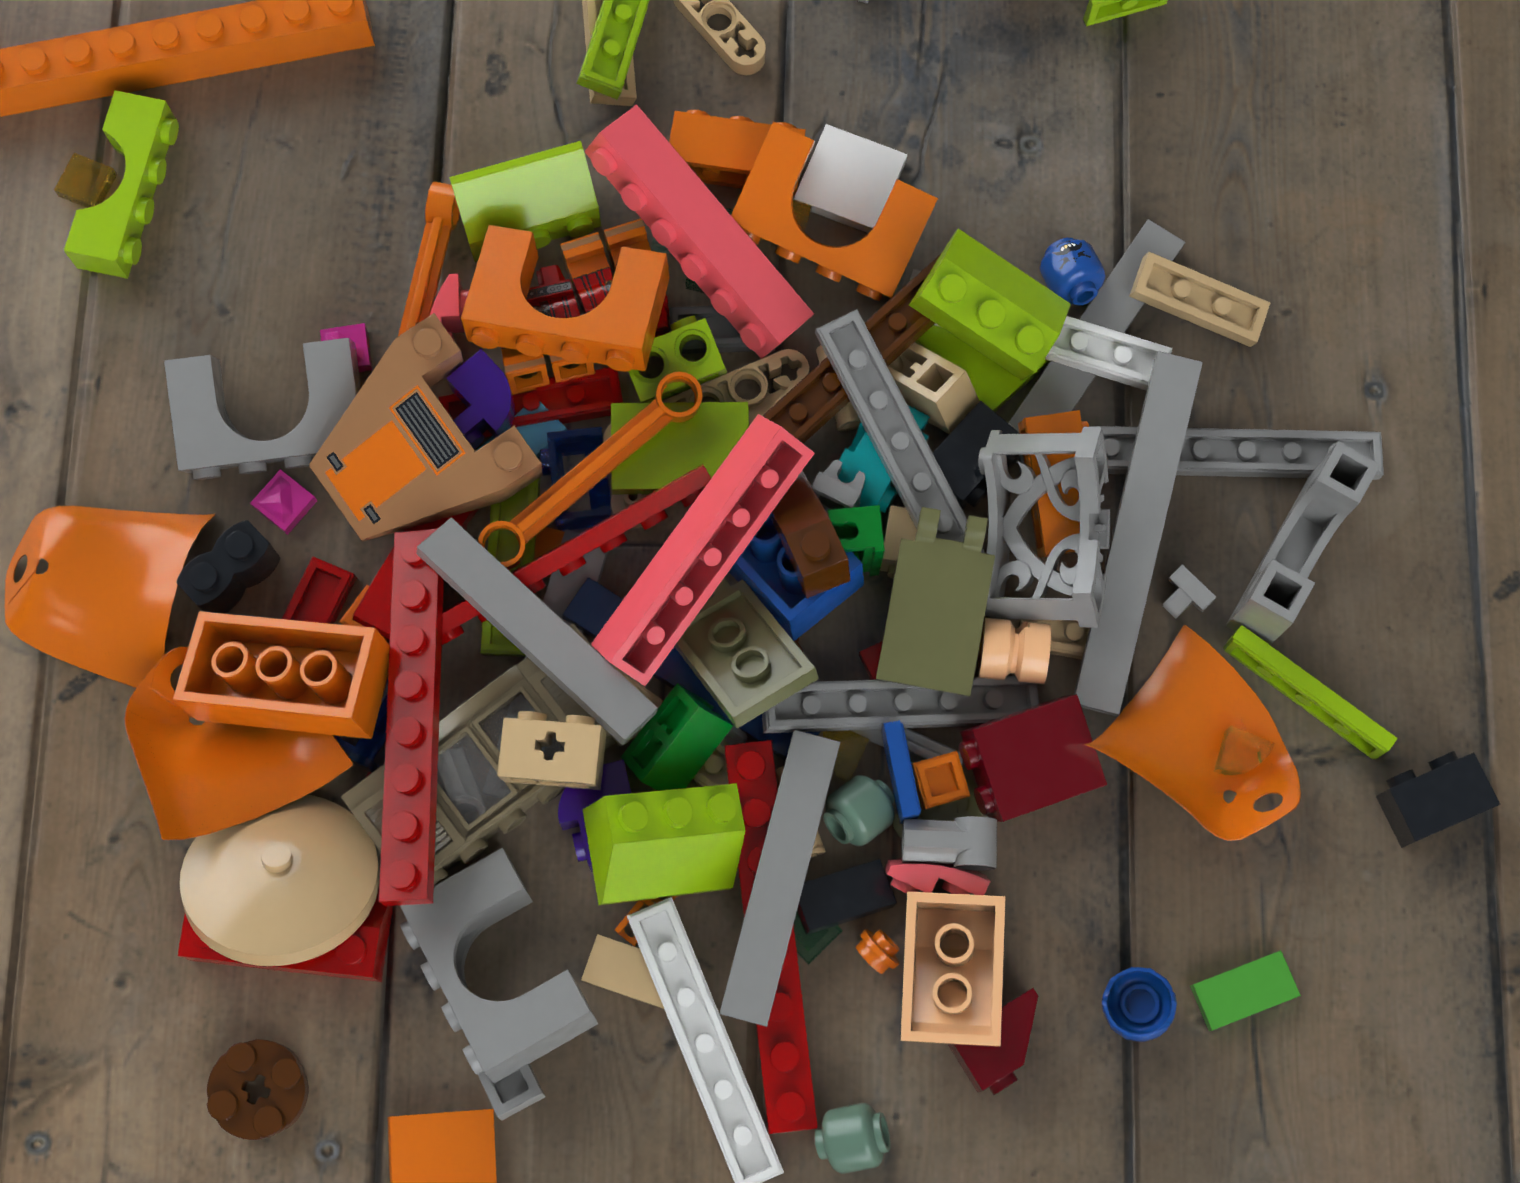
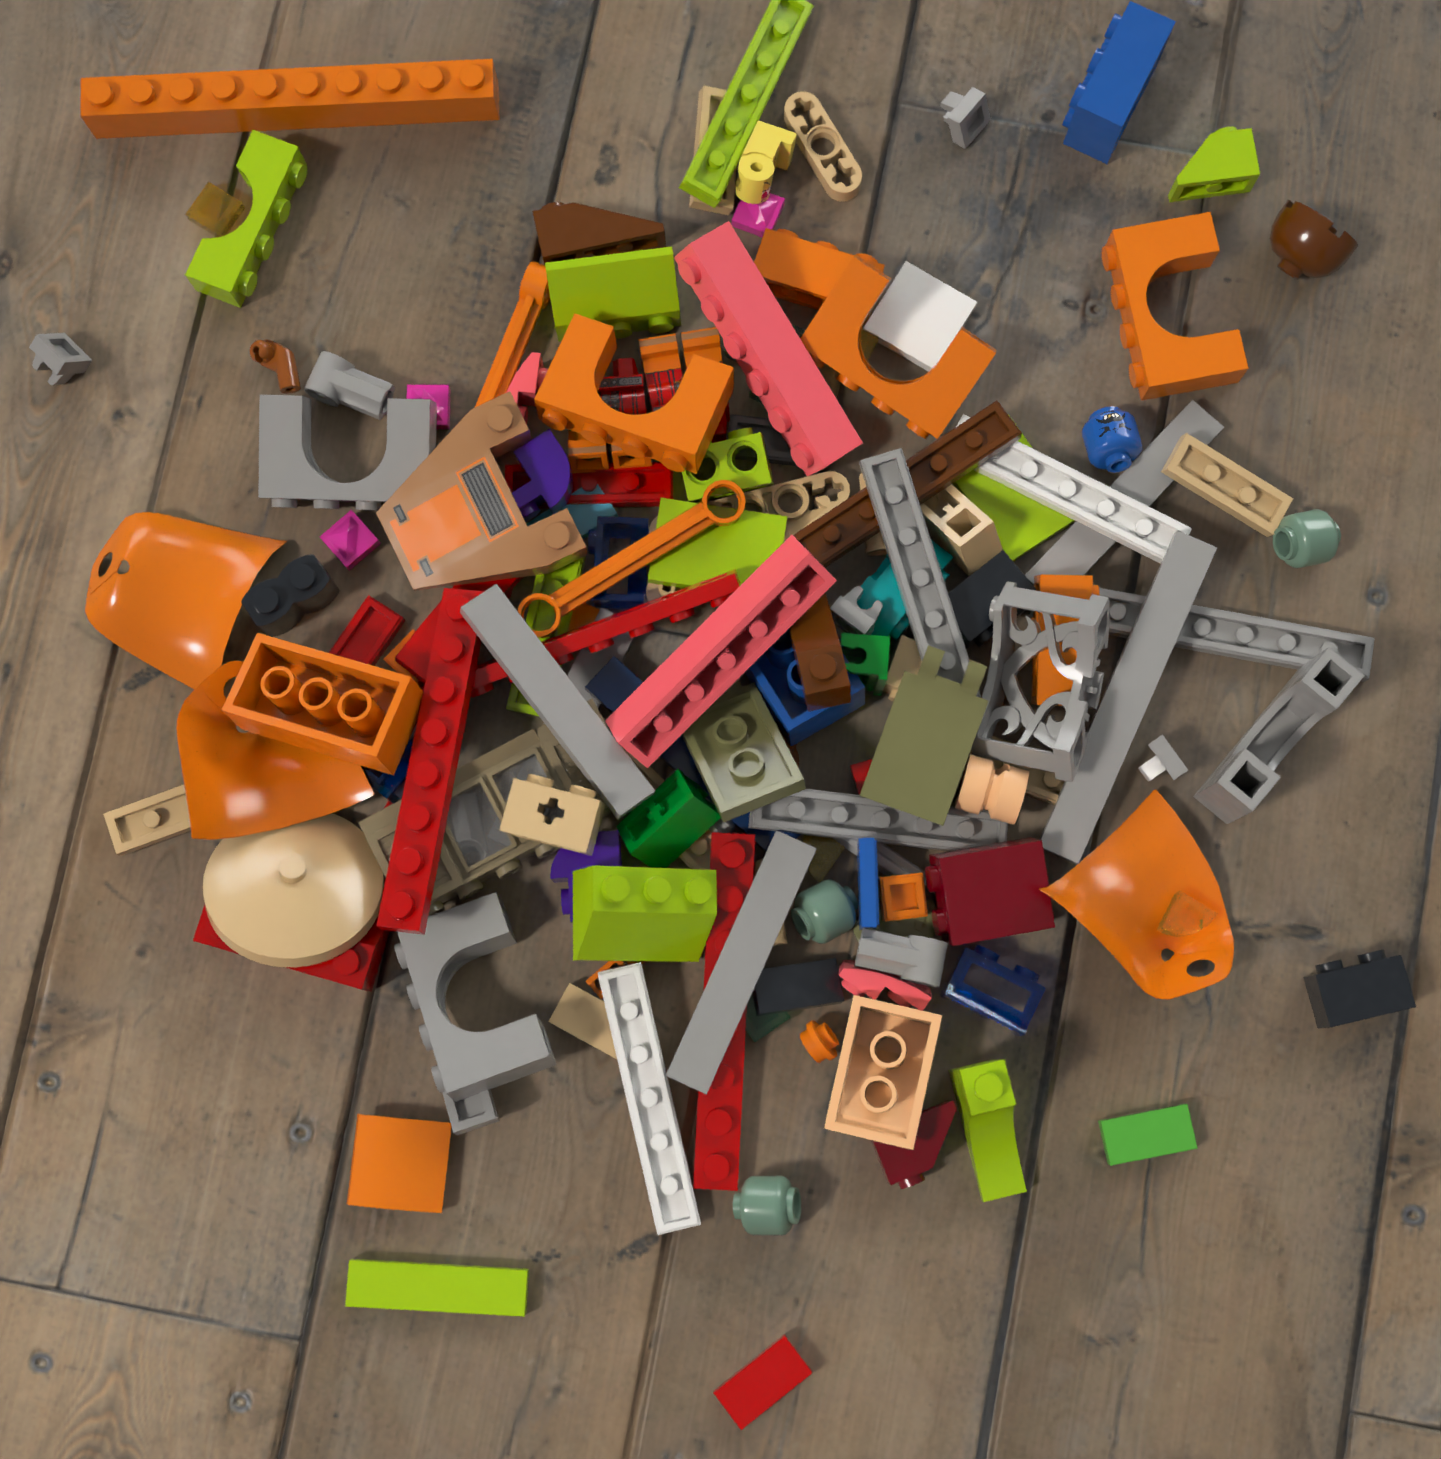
camera: 15 degrees right, 5 degrees up
(111, 835) = (149, 821): none -> tan plate
(176, 325) = (279, 360): none -> dark orange arm
(246, 338) = (338, 382): none -> light grey piece
(269, 1116) = (221, 1074): reddish brown plate -> none
(483, 141) = (587, 231): none -> reddish brown slope
(660, 34) = (765, 151): none -> light yellow leg
(663, 96) = (758, 217): none -> dark pink tile
(991, 305) = (1029, 462): lime slope -> none
(1047, 880) = (985, 1005): none -> clear blue window
(1070, 994) = (986, 1115): none -> lime arch
(1106, 183) = (1161, 360): none -> orange arch
(1139, 1004) = (1048, 1131): blue hair -> none
(1236, 42) = (1308, 242): none -> reddish brown cylinder
(1292, 341) = (1306, 538): none -> sand green head
(1309, 693) = (1259, 873): lime tile -> none

